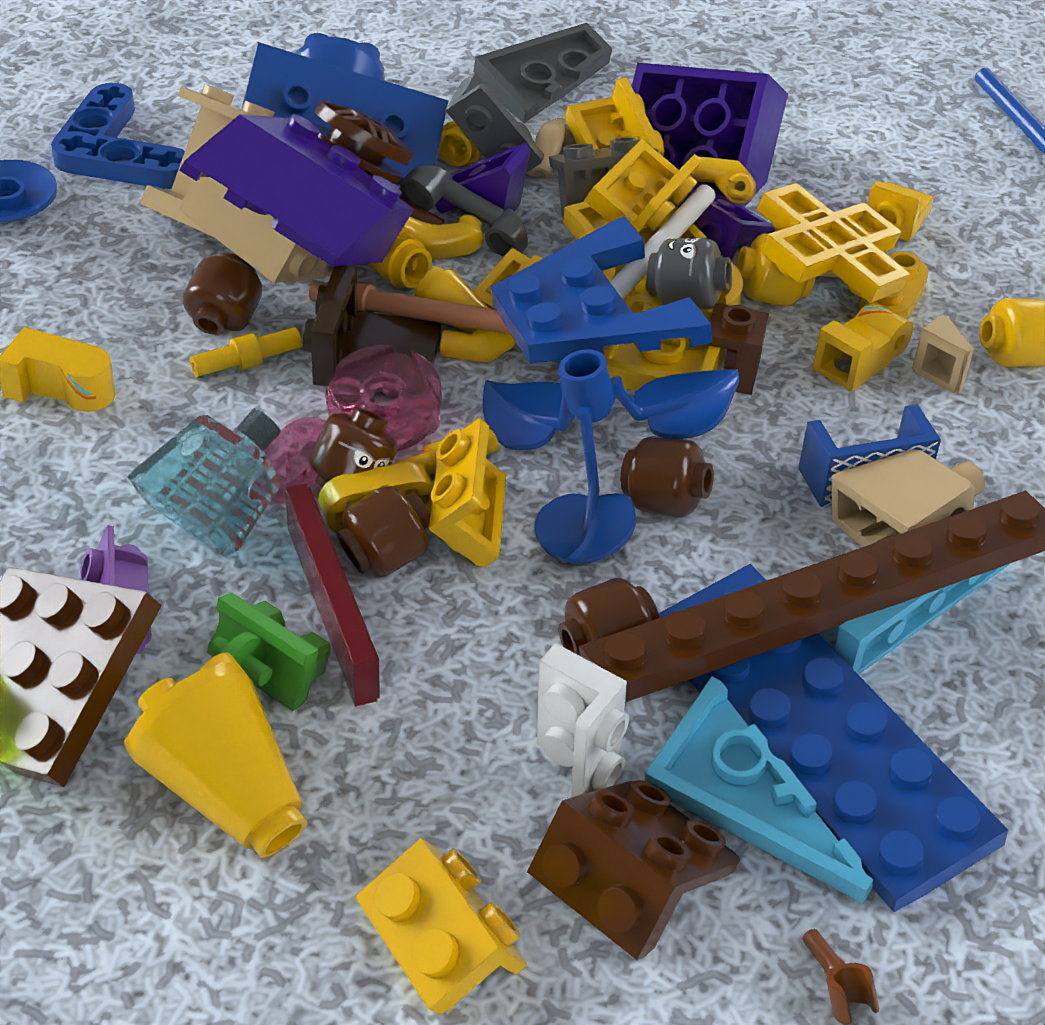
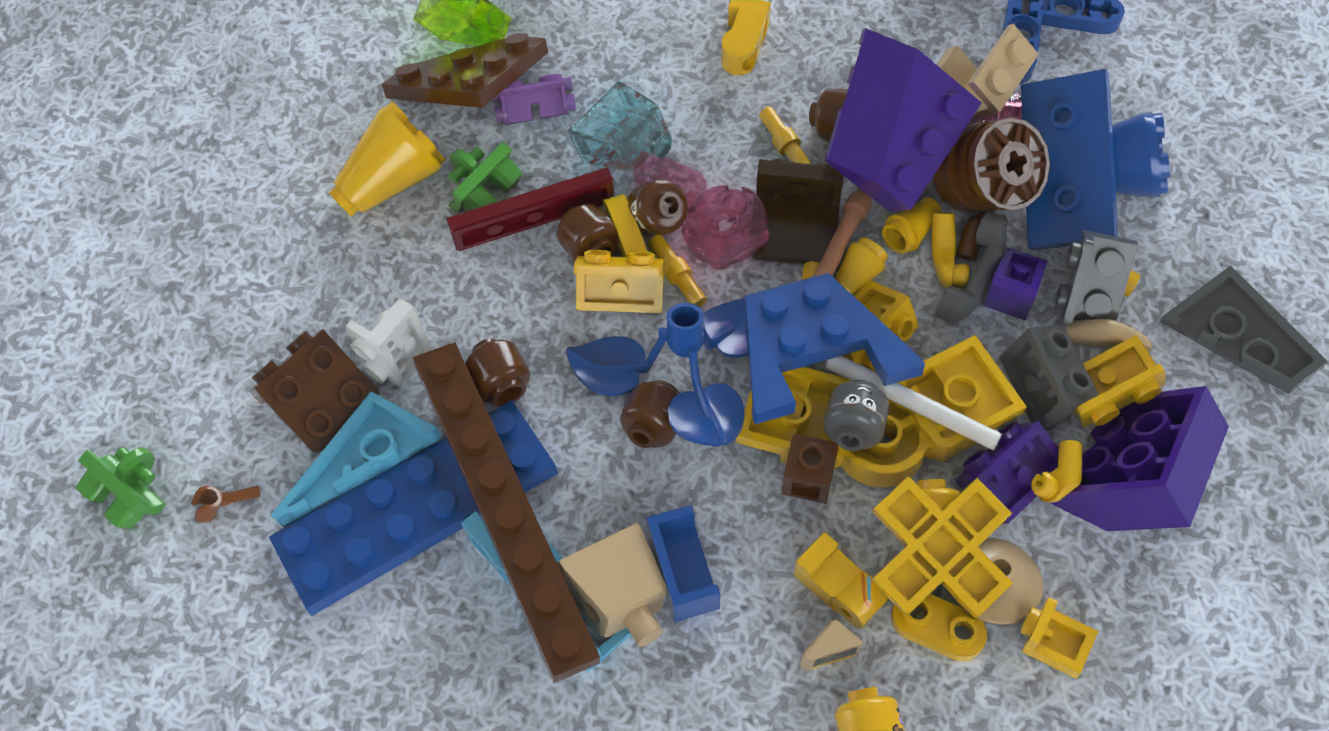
camera: 95 degrees right, 20 degrees up
(440, 924) = (277, 289): yellow bracket -> none
(642, 188) = (984, 382): yellow bracket -> none

